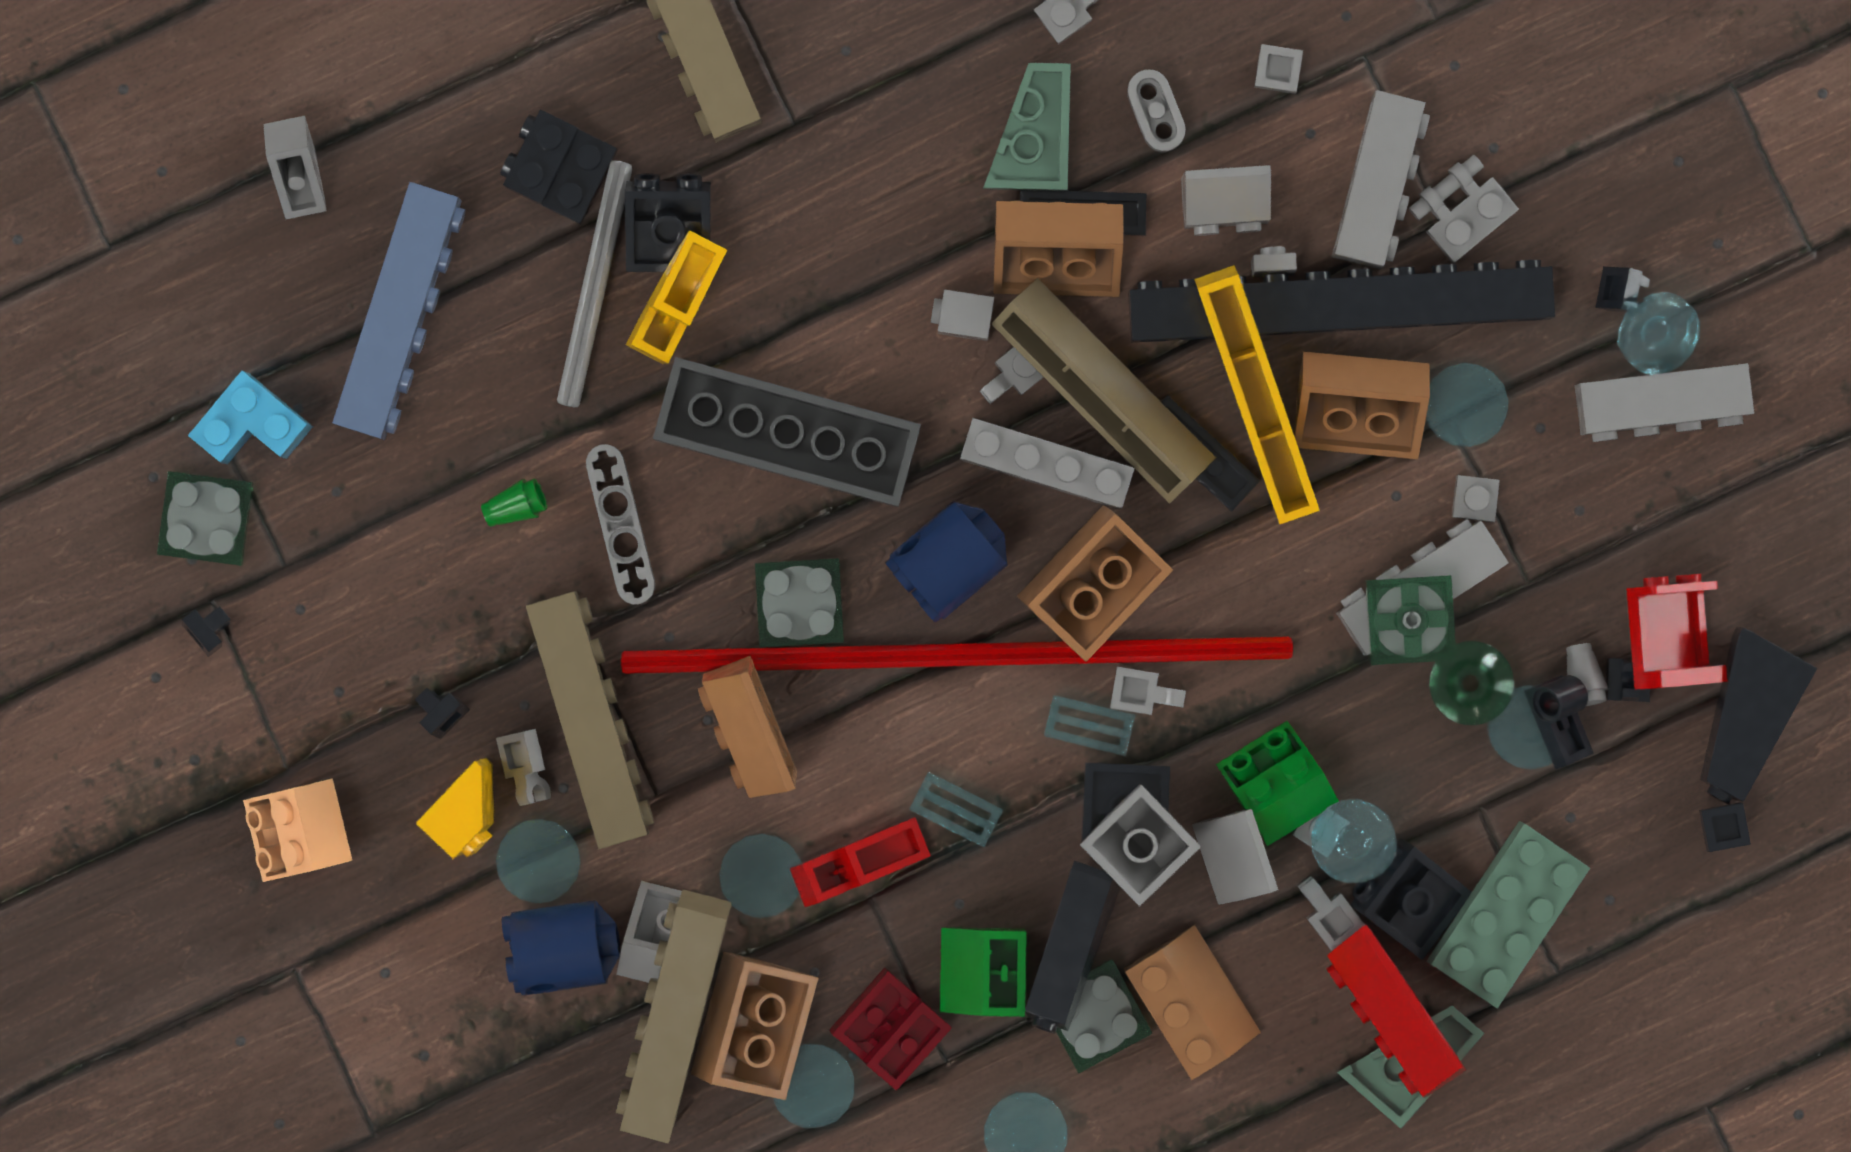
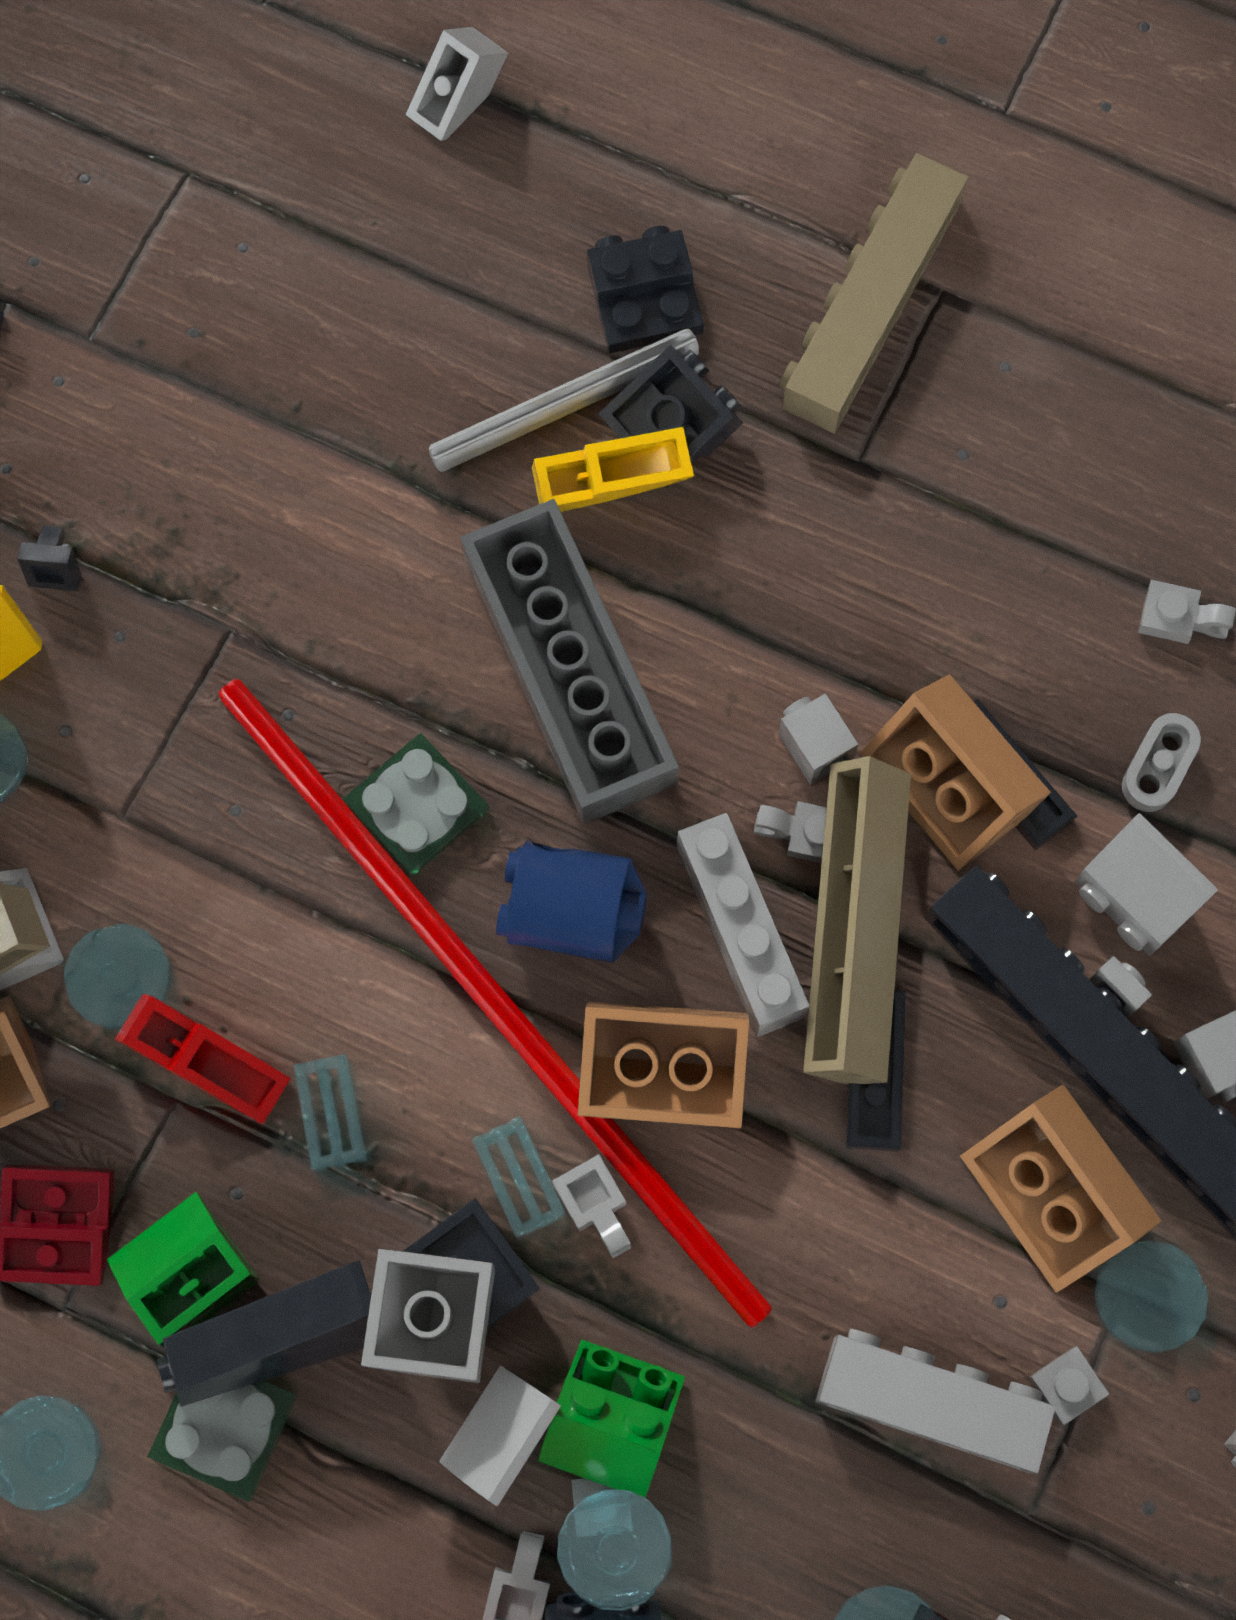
camera: 55 degrees right, 15 degrees down
(205, 518) = (79, 241): light grey piece -> none
(248, 410) = (198, 197): medium azure brick -> none
(398, 311) = (398, 254): sand blue brick -> none
(517, 503) = (304, 481): green cone -> none
(522, 760) = (60, 667): light grey plate -> none
(588, 719) = (145, 697): dark tan brick -> none
(625, 523) = (366, 592): light grey beam -> none
(748, 729) = (252, 844): medium nougat slope -> none
(1036, 134) = (1041, 673): sand green wing -> none
(1192, 1002) = (311, 1518): medium nougat slope -> none
(1257, 394) = (983, 1066): yellow brick -> none
(1410, 620) = (894, 1415): clear green piece -> none
(1493, 689) = (911, 1536): clear green dish -> none

